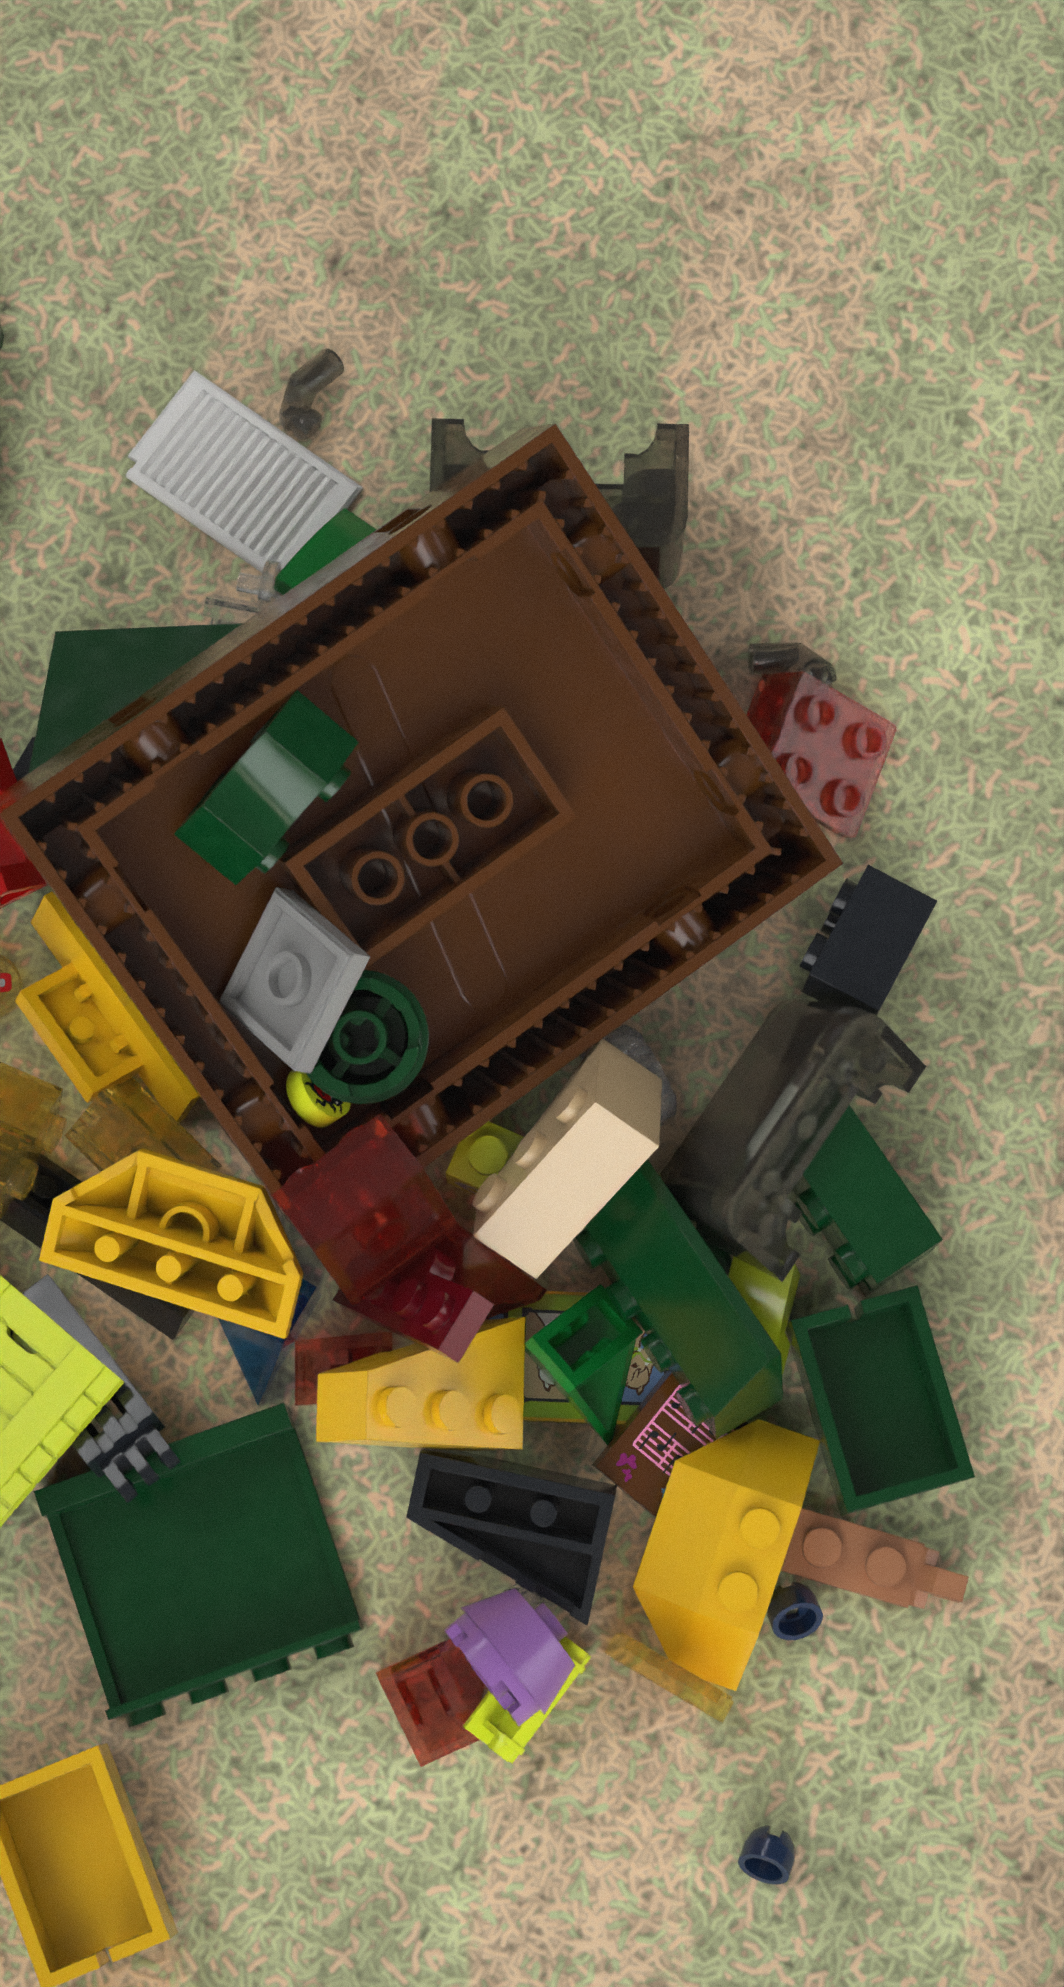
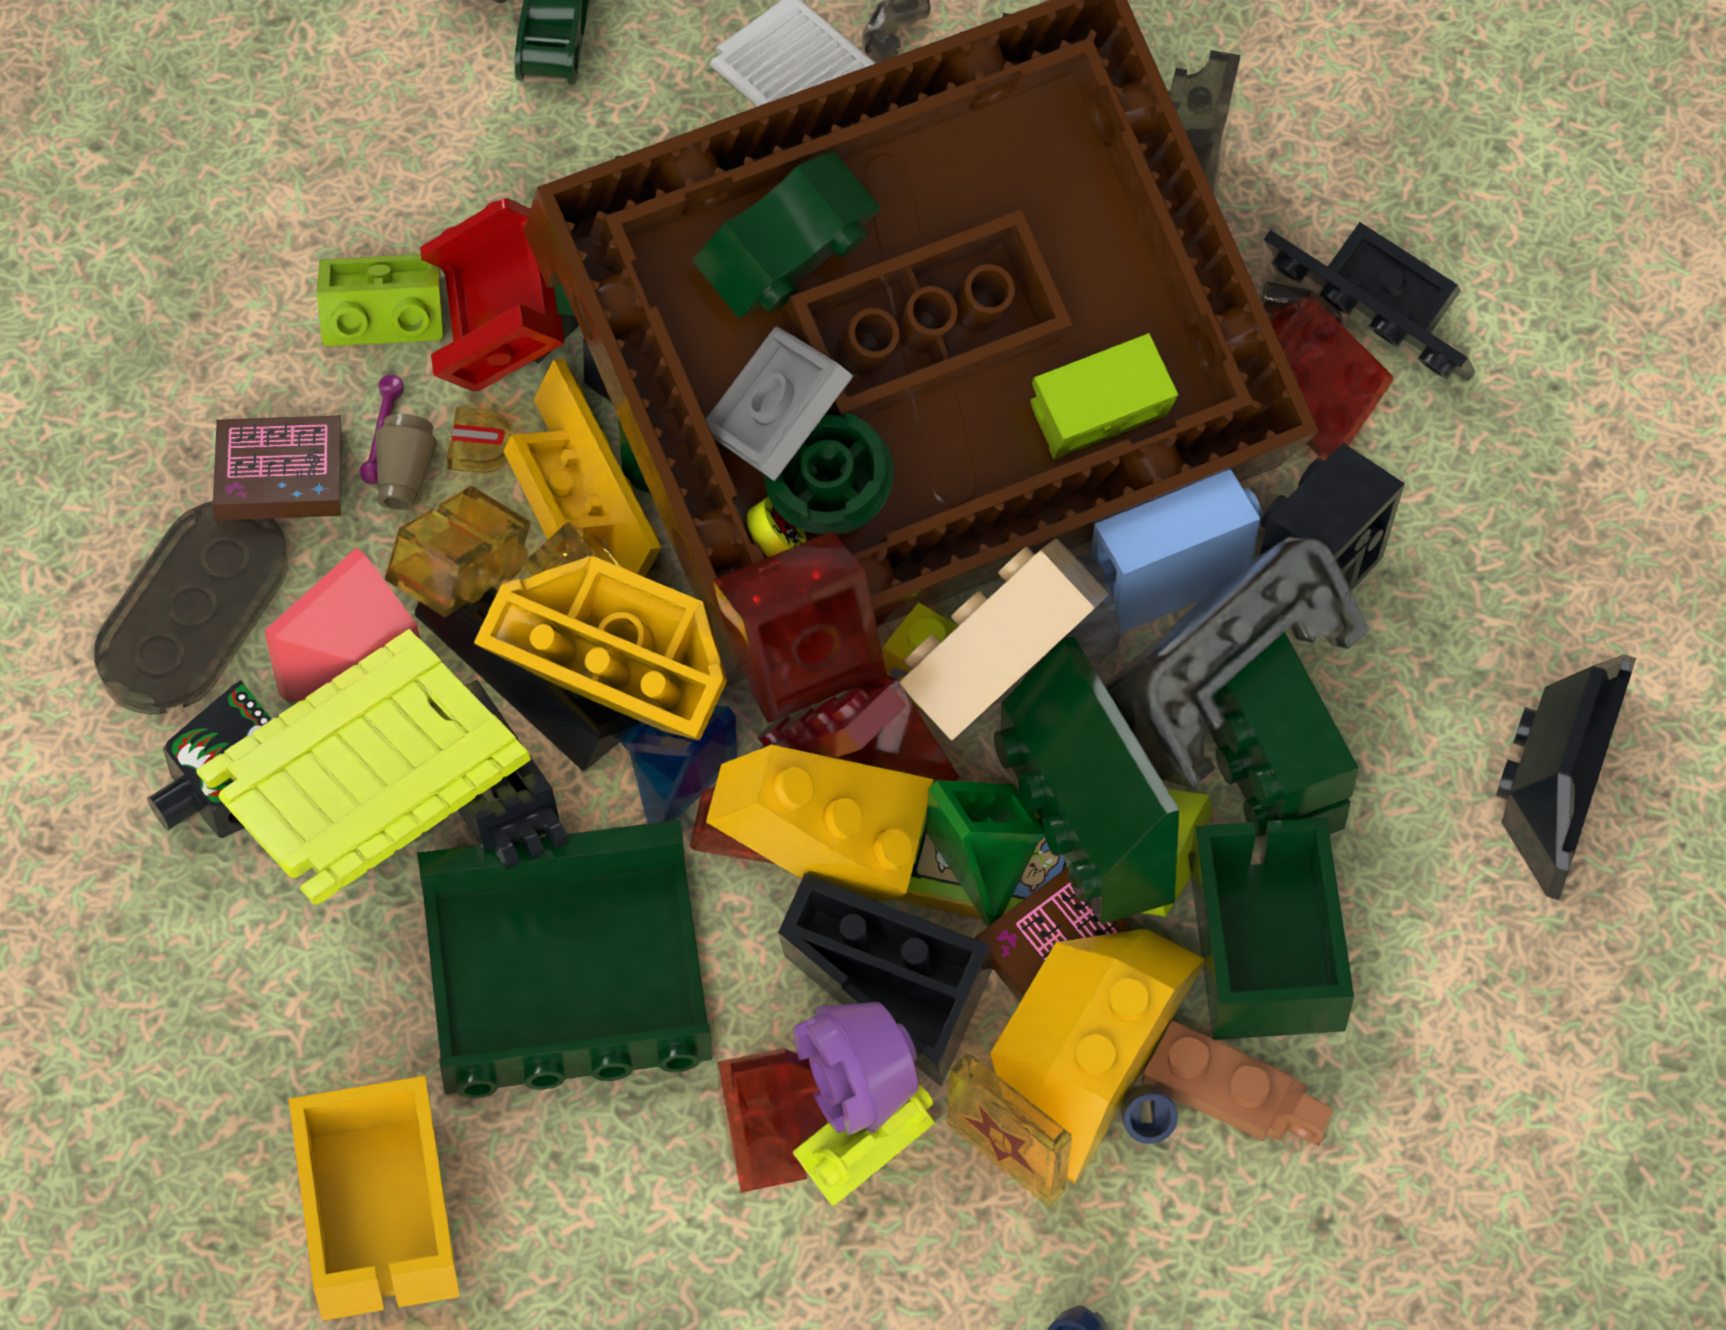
camera: 10 degrees right, 20 degrees down
(620, 873) = (1102, 396): none -> lime hinge
(718, 998) = (1176, 547): none -> light blue brick
(873, 628) = (1385, 285): none -> black bracket

